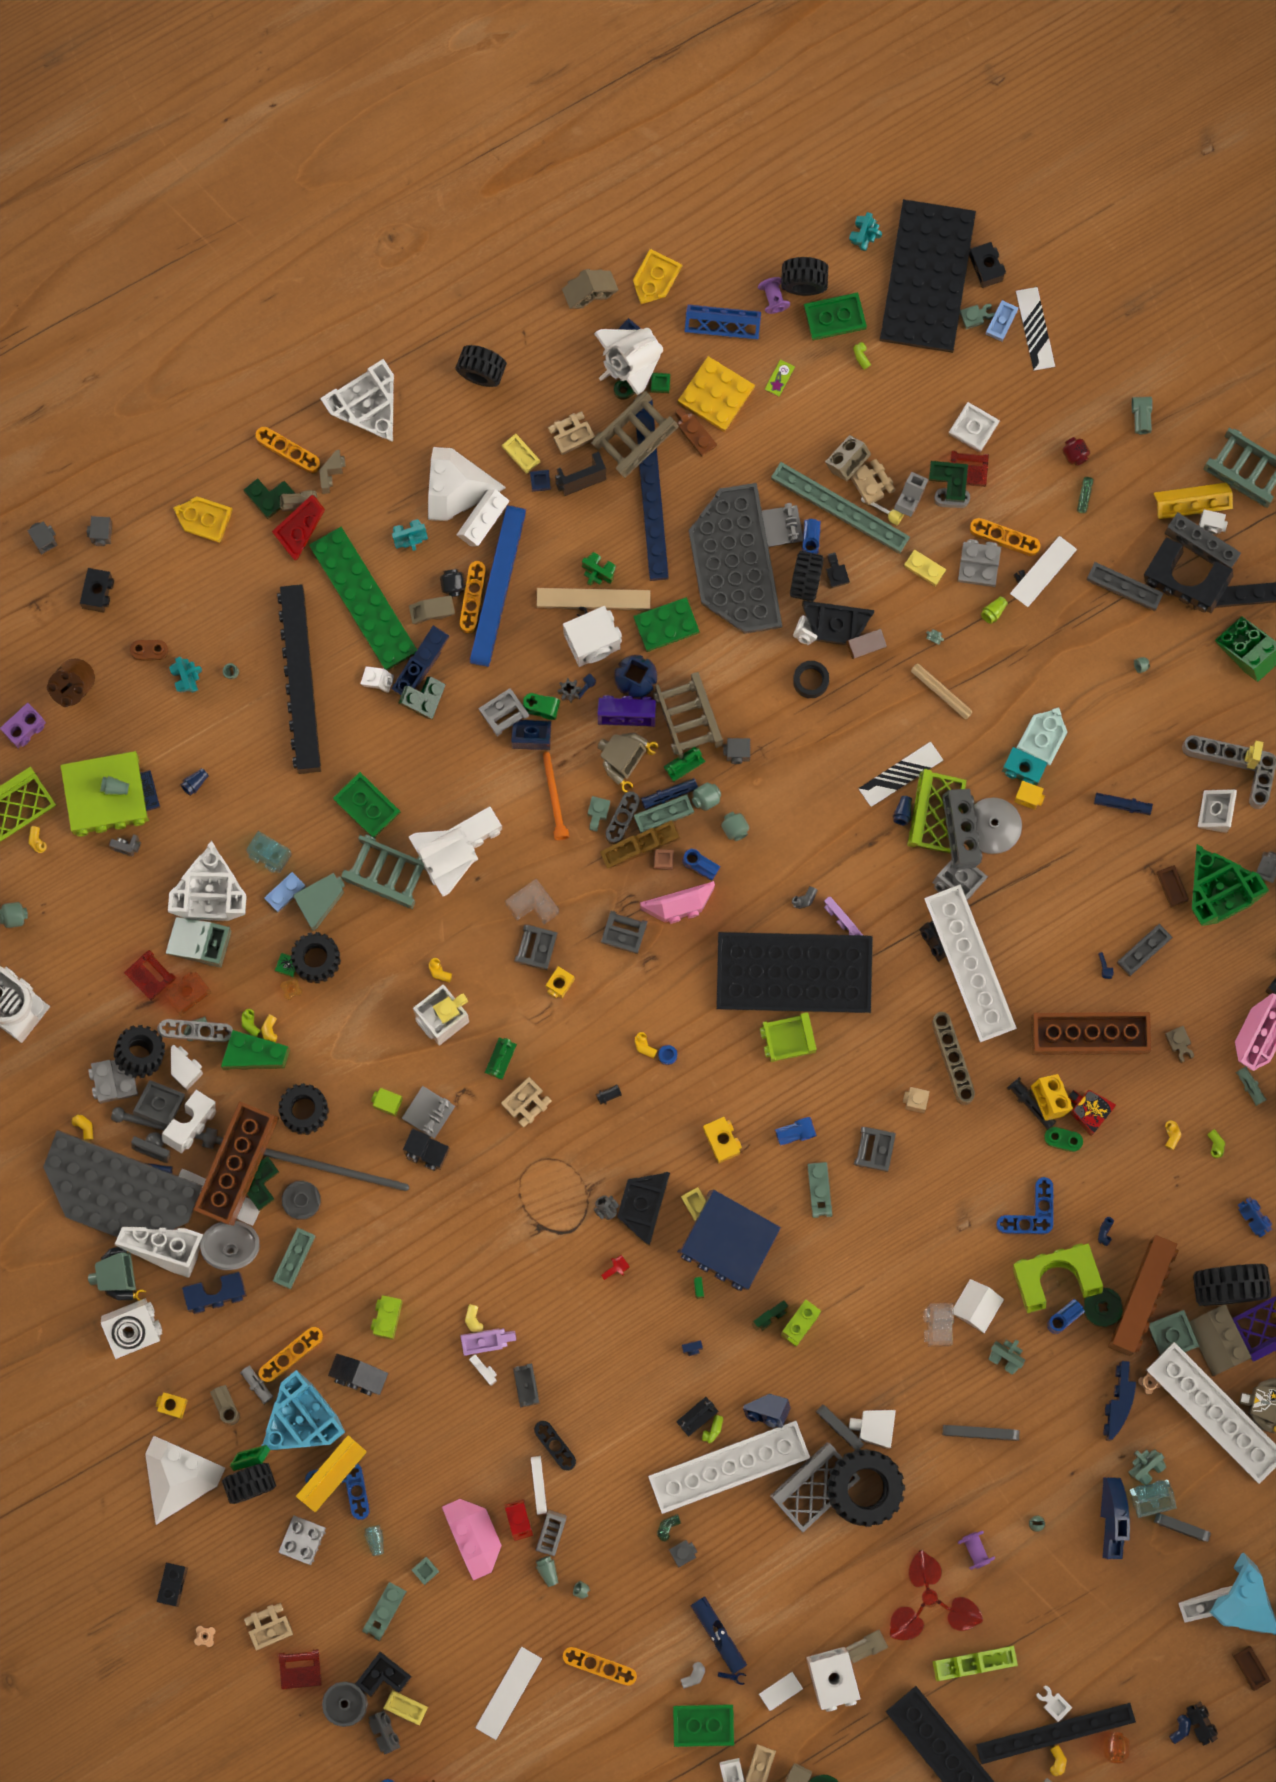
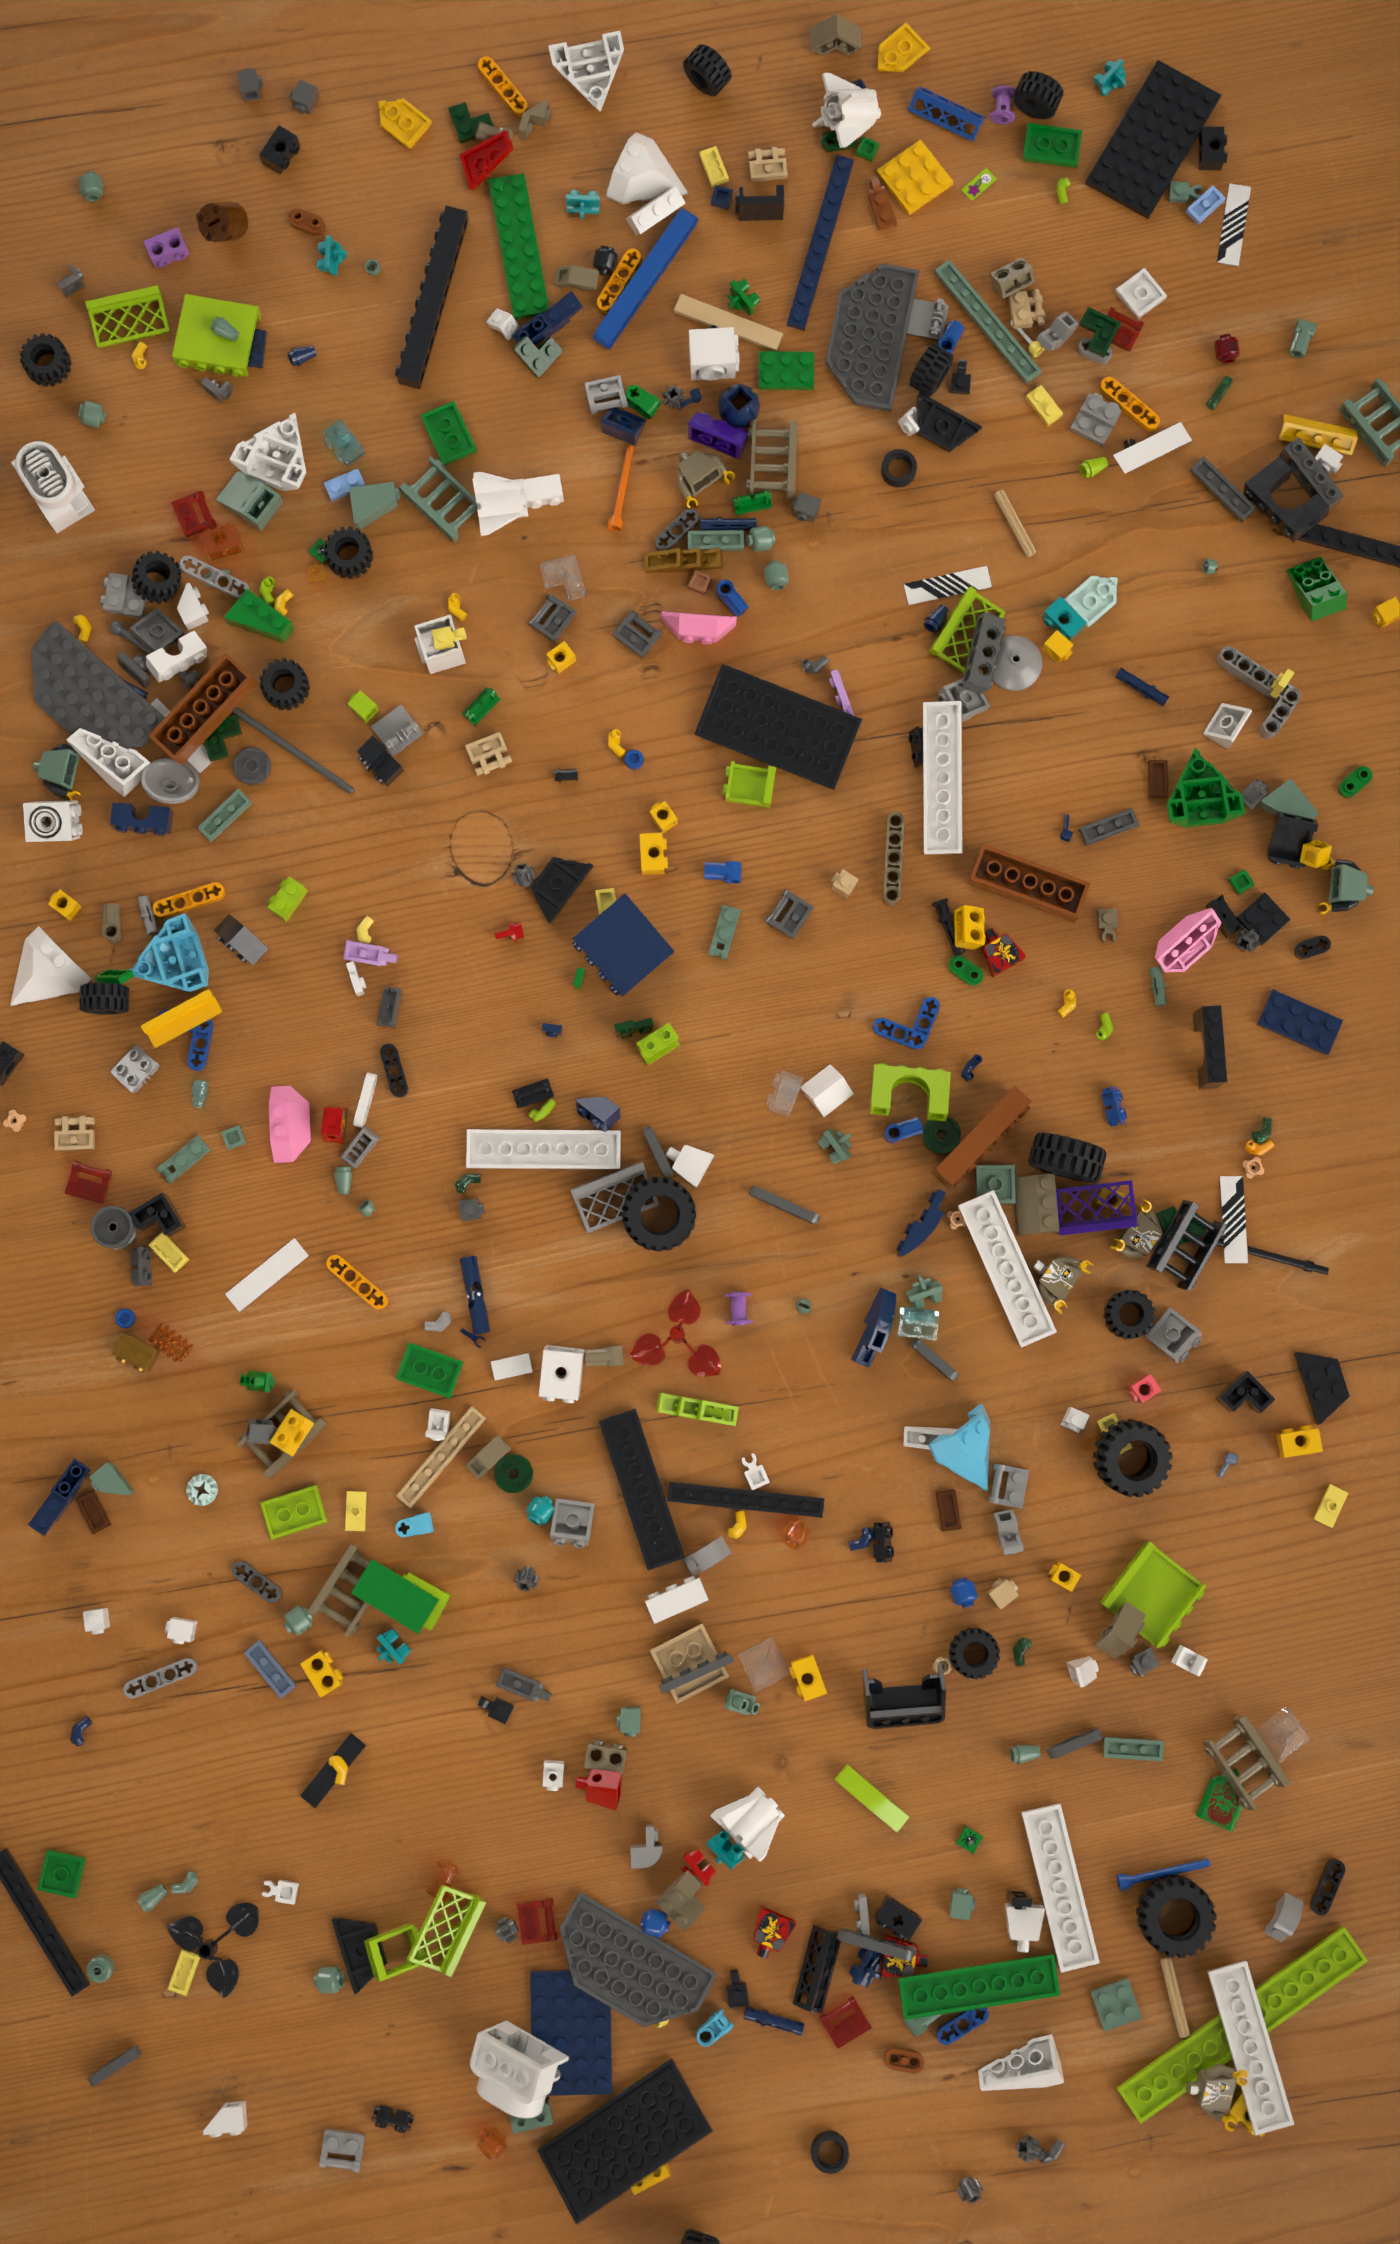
camera: 20 degrees right, 5 degrees up
(598, 810) = (657, 516): sand green plate -> none
(652, 439) = (832, 198): dark tan fence -> none
(723, 1106) = (666, 824): none -> yellow brick
(866, 643) = (962, 454): tile -> none
(934, 636) = (1028, 471): sand green plate -> none

